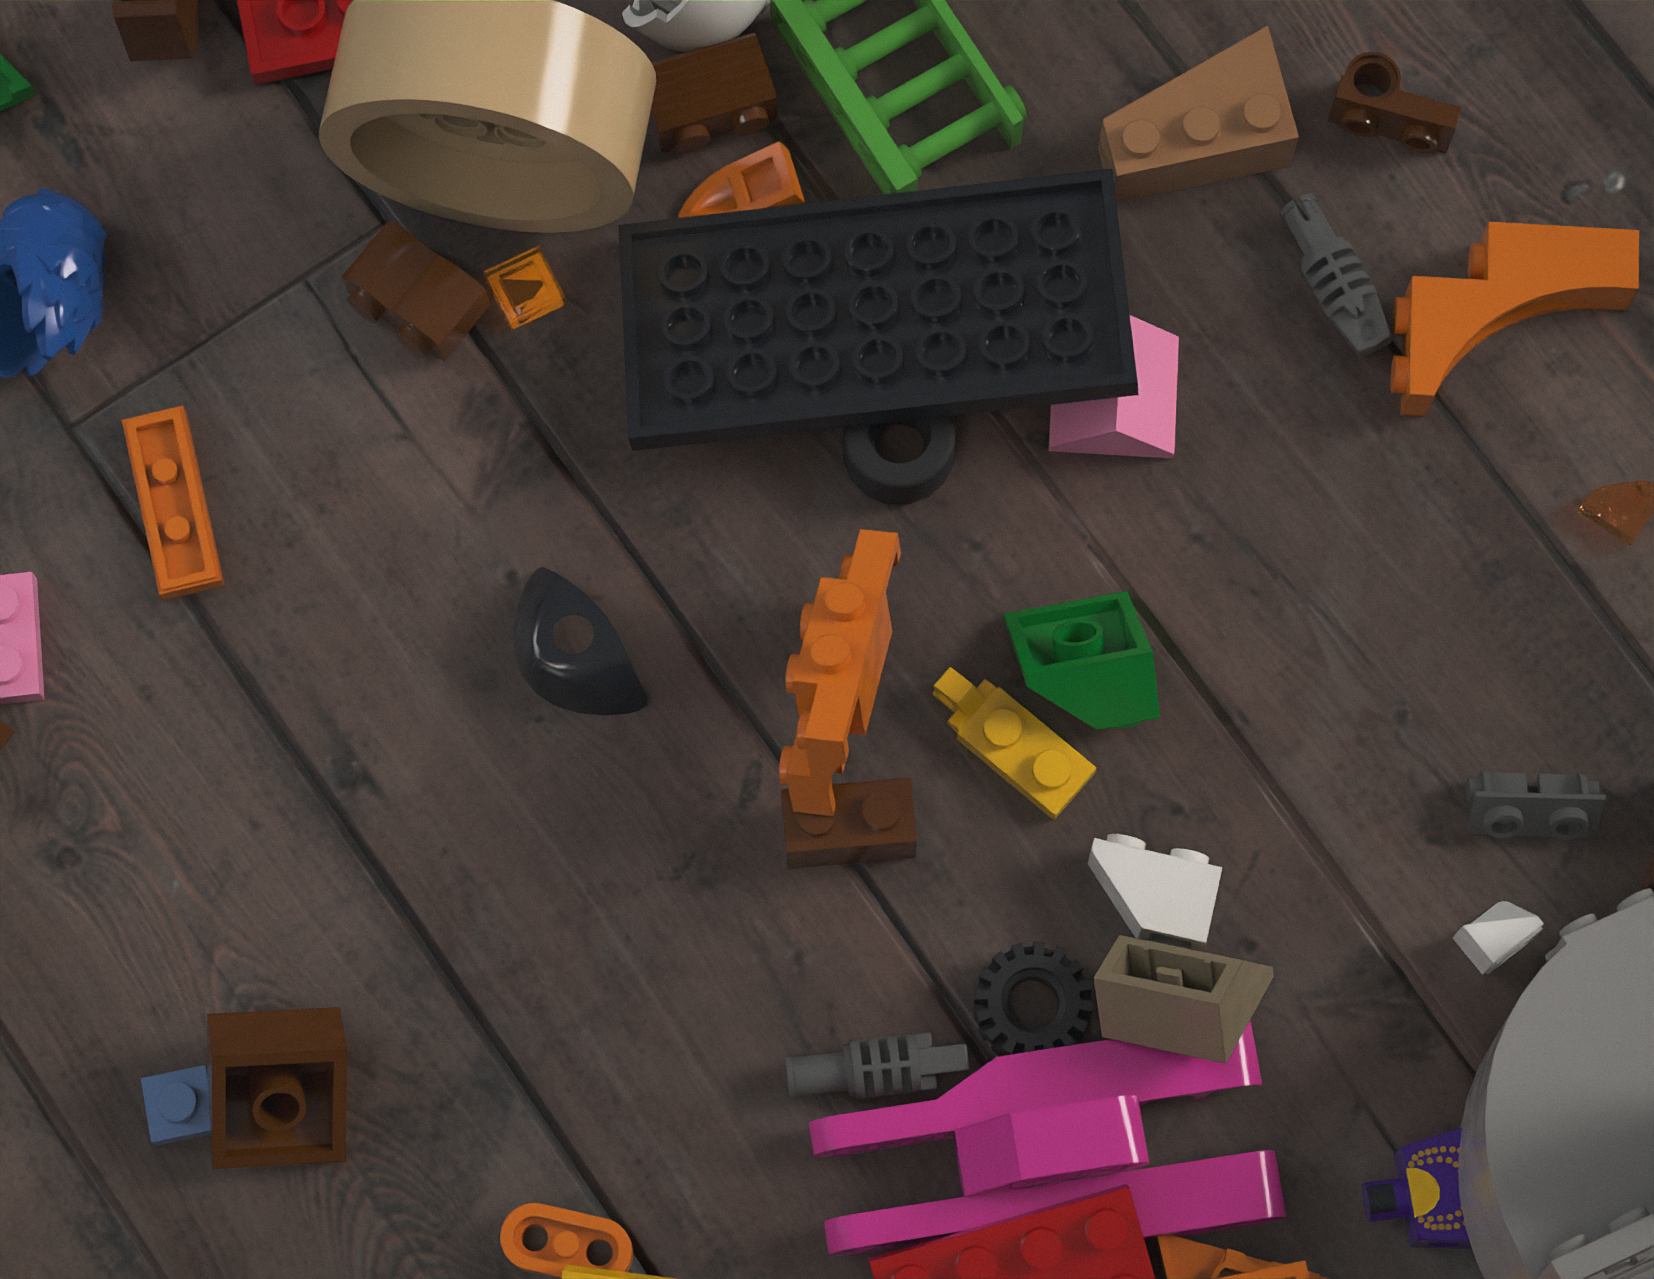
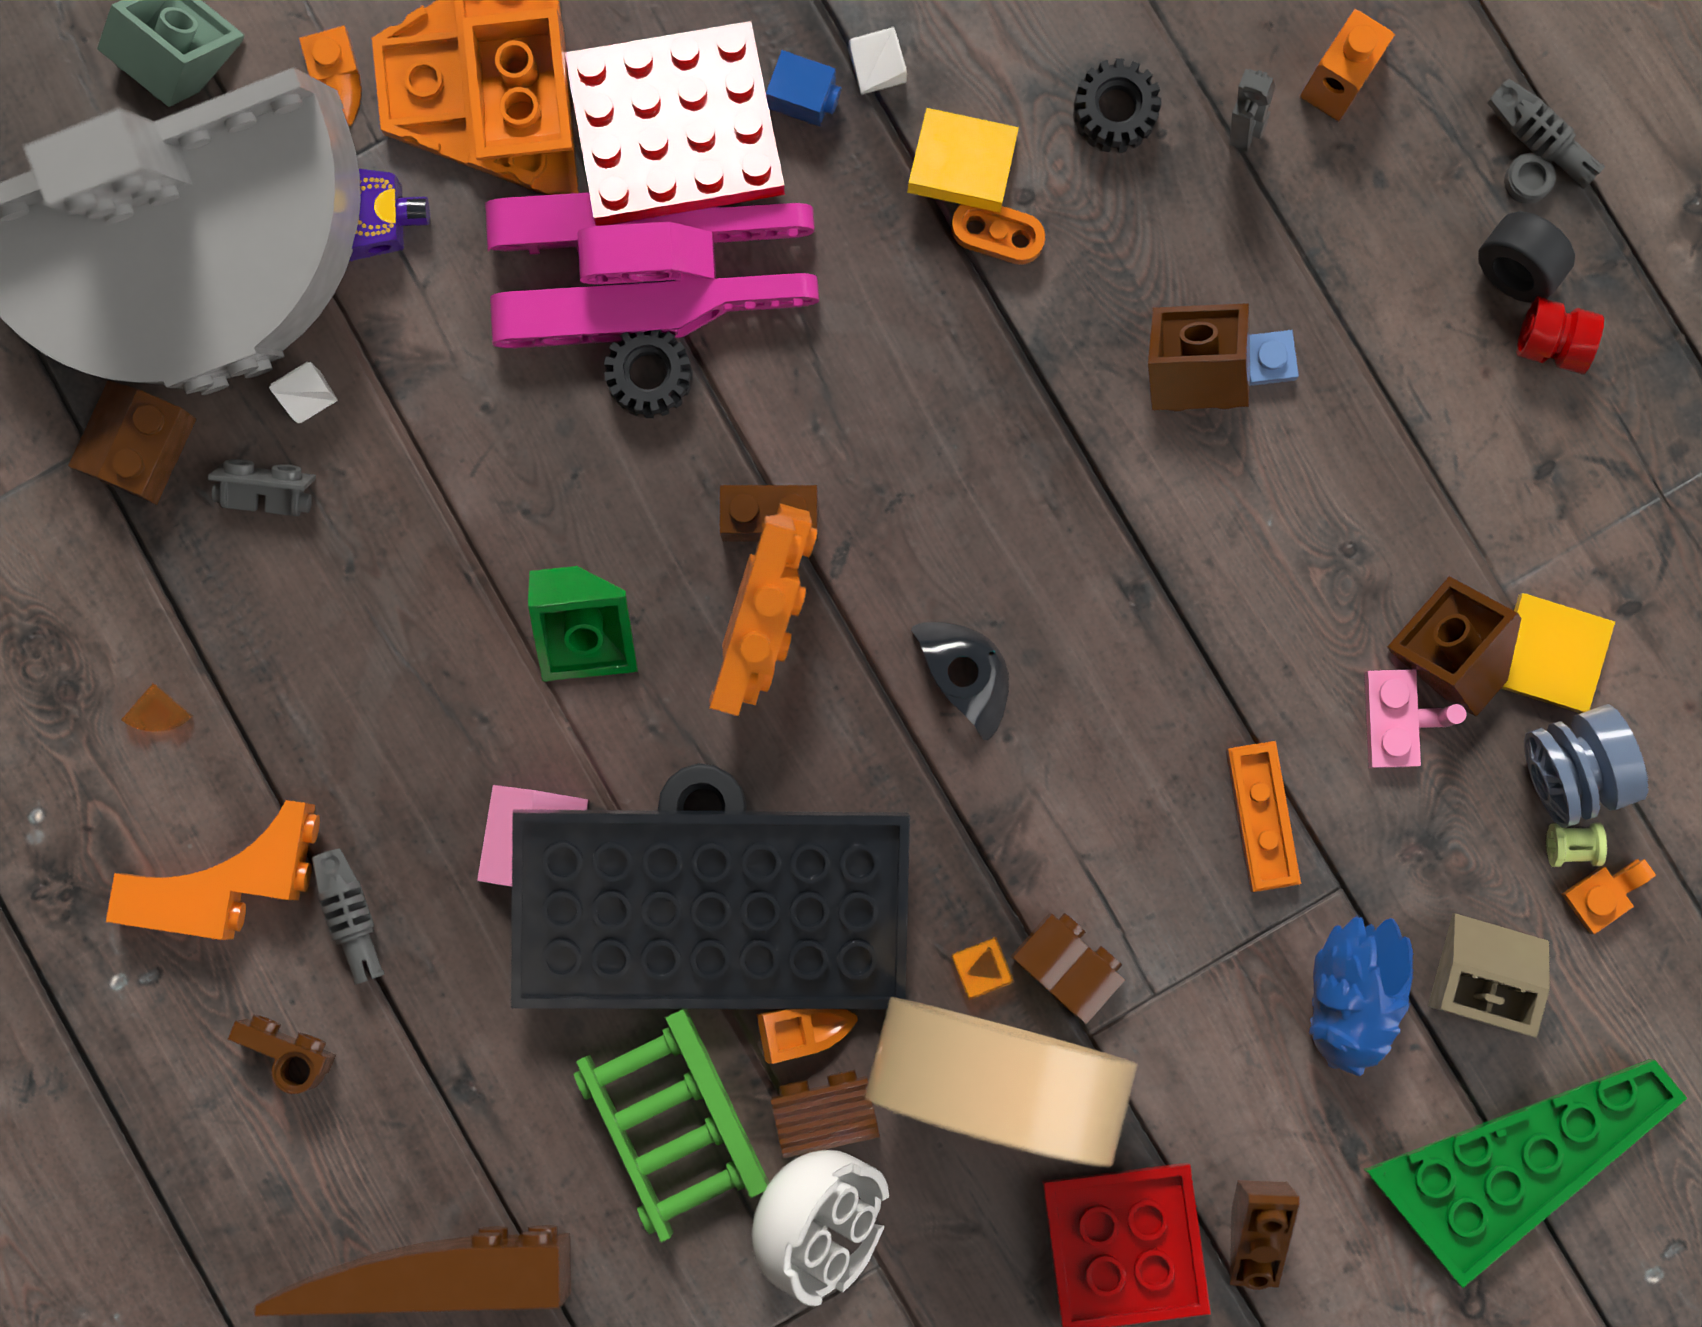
camera: 175 degrees left, 10 degrees up
(876, 1067) = (764, 337): dark grey hinge -> none
(1014, 742) = (639, 569): yellow hinge -> none
(1158, 893) = (544, 440): white slope -> none
(1177, 998) = (539, 355): dark tan slope -> none
(1203, 125) = (430, 1049): medium nougat wedge -> none

